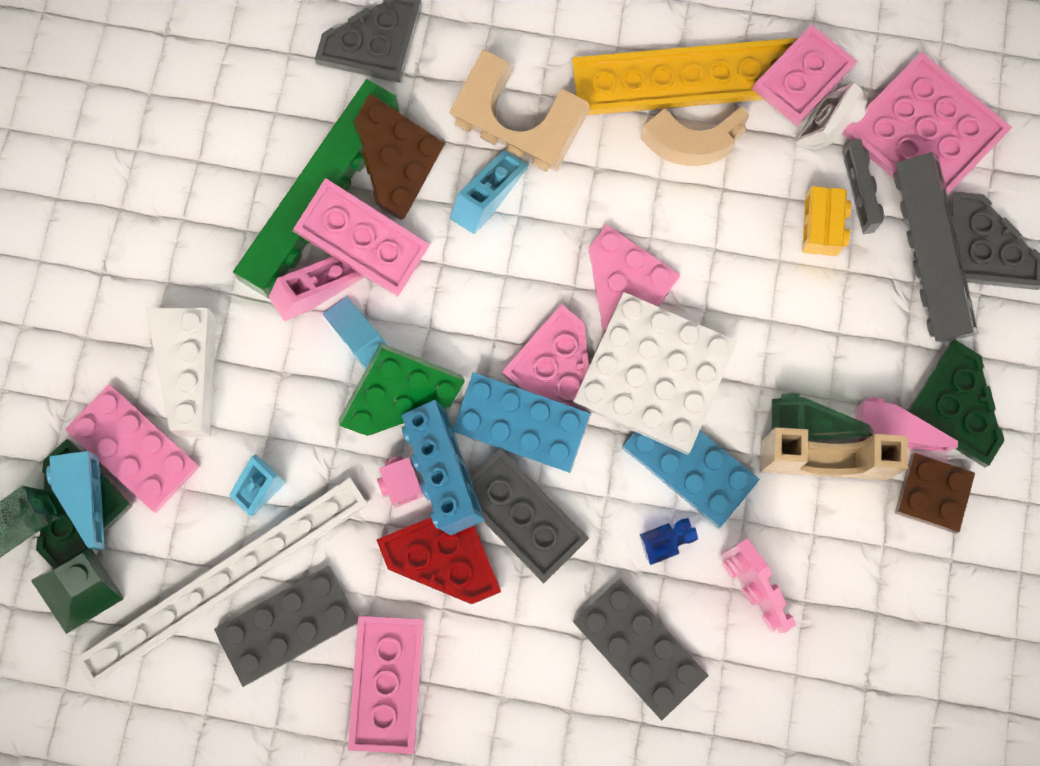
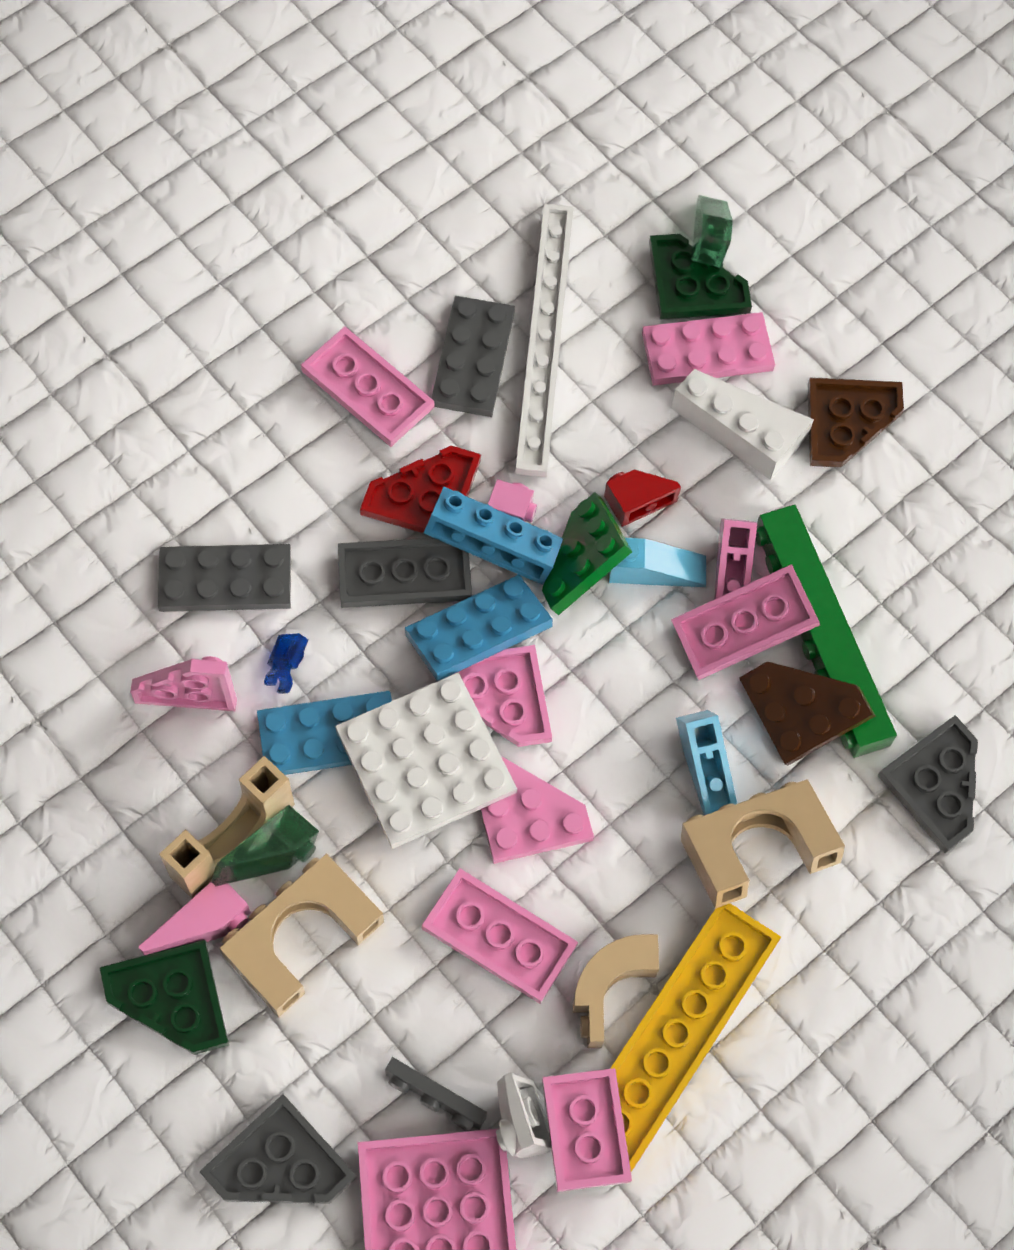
camera: 125 degrees right, 10 degrees down
(77, 589) = (625, 242): dark green slope -> none
(78, 489) = (693, 279): medium azure slope -> none
(114, 296) = (849, 416): none -> reddish brown plate
(256, 485) = (600, 410): medium azure slope -> none
(314, 396) = (639, 494): none -> red slope
(727, 231) = (499, 935): none -> bright pink plate
(803, 368) = (320, 888): none -> tan arch
(825, 221) = (432, 1029): yellow brick -> none
(935, 493) = (121, 908): reddish brown plate -> none
(936, 248) = (319, 1096): dark grey brick -> none

